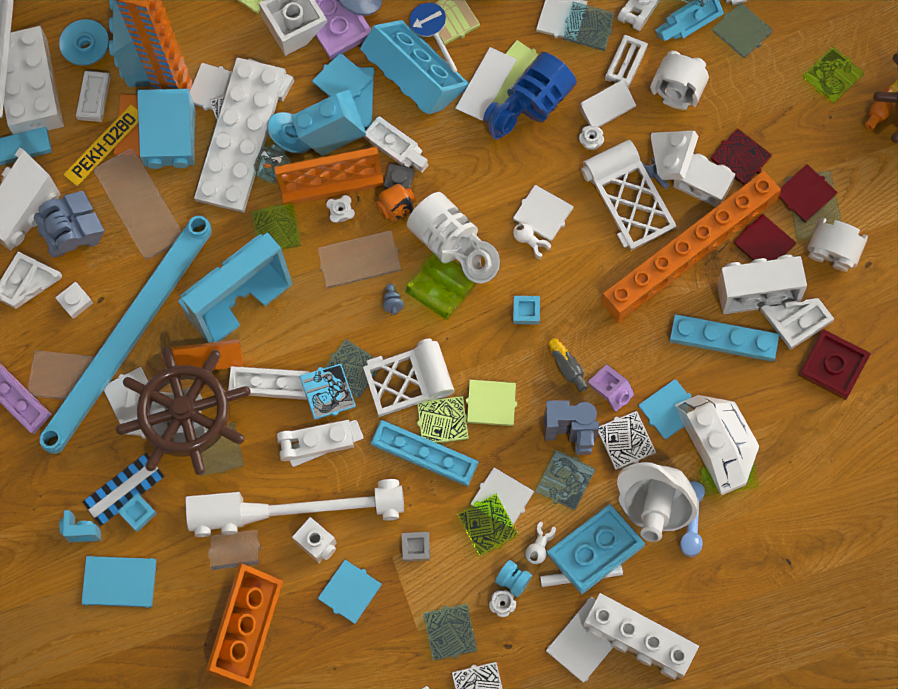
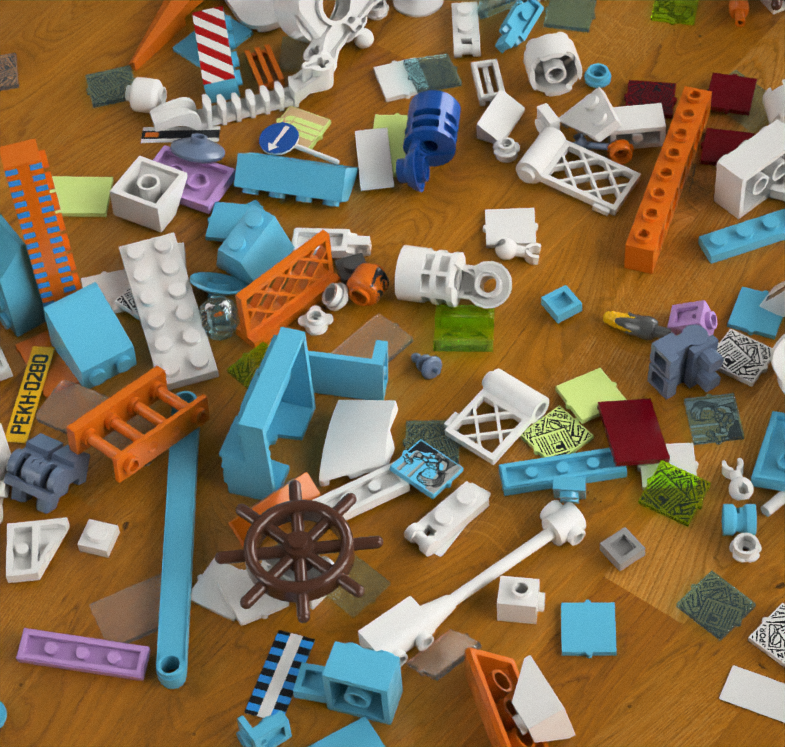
camera: 35 degrees left, 20 degrees down
(146, 206) = (125, 405): none -> orange fence
(157, 533) = (362, 682): none -> medium azure brick
(263, 635) = (538, 706): none -> white slope
(296, 335) = (358, 439): none -> white slope
(341, 293) = (351, 375): none -> medium azure panel
(367, 197) = (335, 296): none -> white plate
(408, 478) = (569, 489): none -> medium azure plate
(495, 455) = (633, 432): none -> dark red piece
(637, 133) = (546, 118): none -> white plate
(676, 196) = (620, 151): none -> orange plate
(714, 103) = (597, 75): none -> medium azure plate

